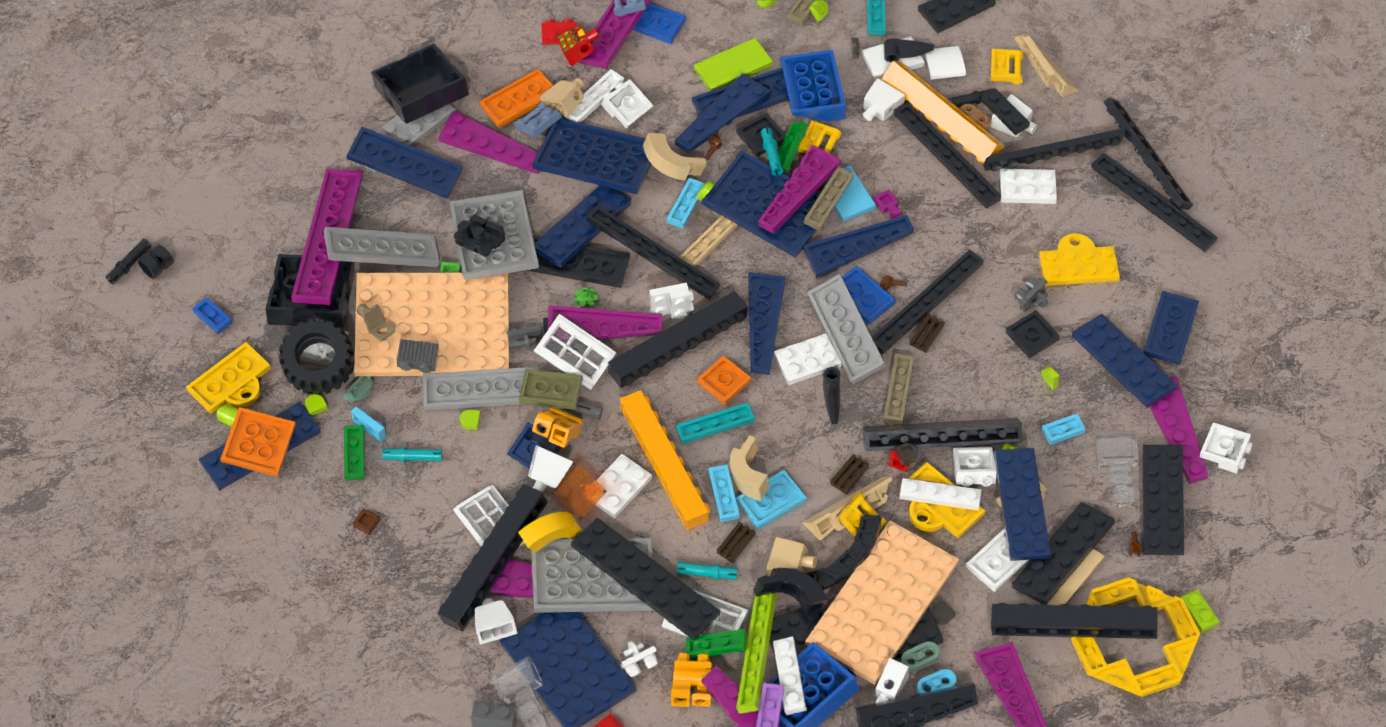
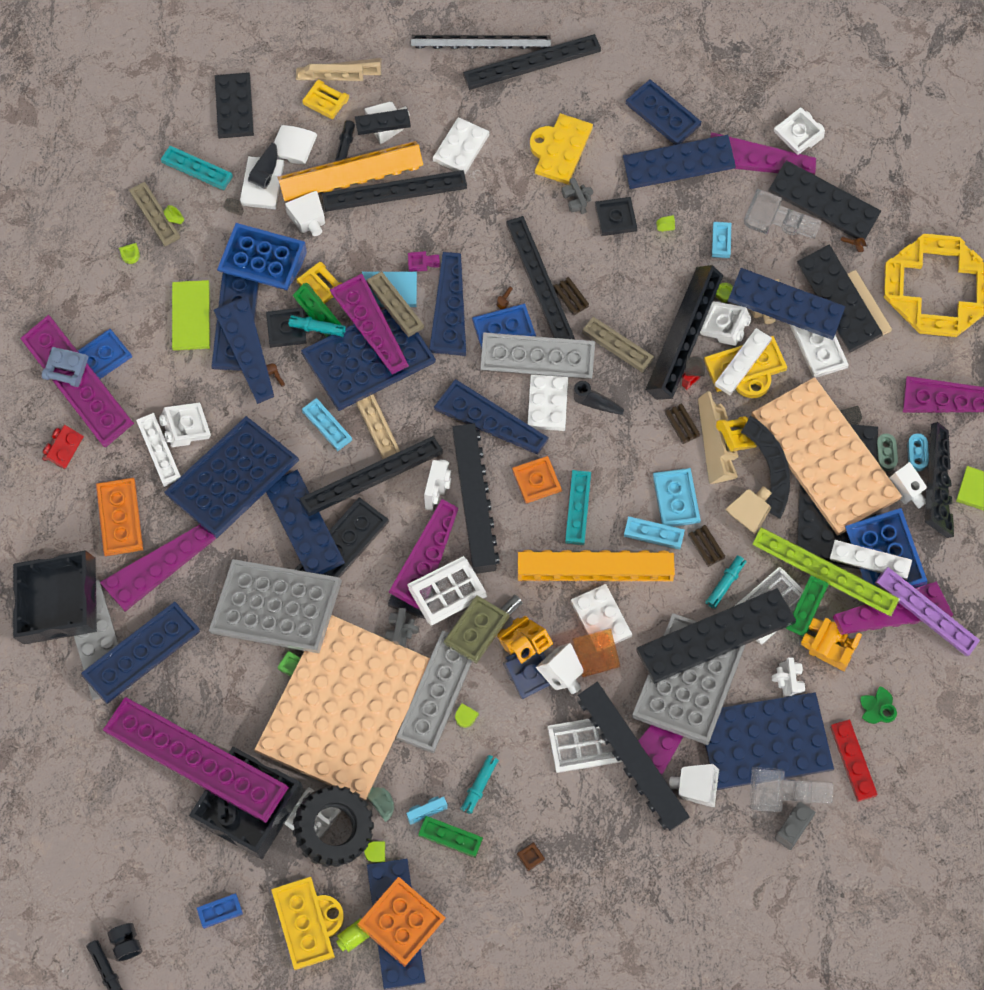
camera: 65 degrees left, 10 degrees up
(375, 321) = (325, 754): dark tan bracket -> none
(381, 247) = (237, 714): light grey plate -> none
(417, 355) = (383, 731): dark grey brick -> none
(479, 235) = (281, 618): black hips -> none
(538, 120) = (163, 509): sand blue plate -> none
(548, 529) = (637, 693): yellow arch -> none
(564, 96) = (147, 475): tan torso -> none
(577, 43) = (92, 435): red torso -> none
(586, 297) = (382, 557): bright green plant -> none
(668, 161) = (275, 418): tan arch -> none
(705, 190) = (327, 400): lime tile -> none
(747, 480) = (645, 508): tan arch -> none
(796, 584) = (785, 512): black arch -> none
(977, 115) = (365, 147): medium nougat plate -> none
(1051, 150) = (440, 113): black plate -> none
(1074, 621) = (913, 320): black brick -> none
(1200, 611) = (935, 226): lime plate -> none

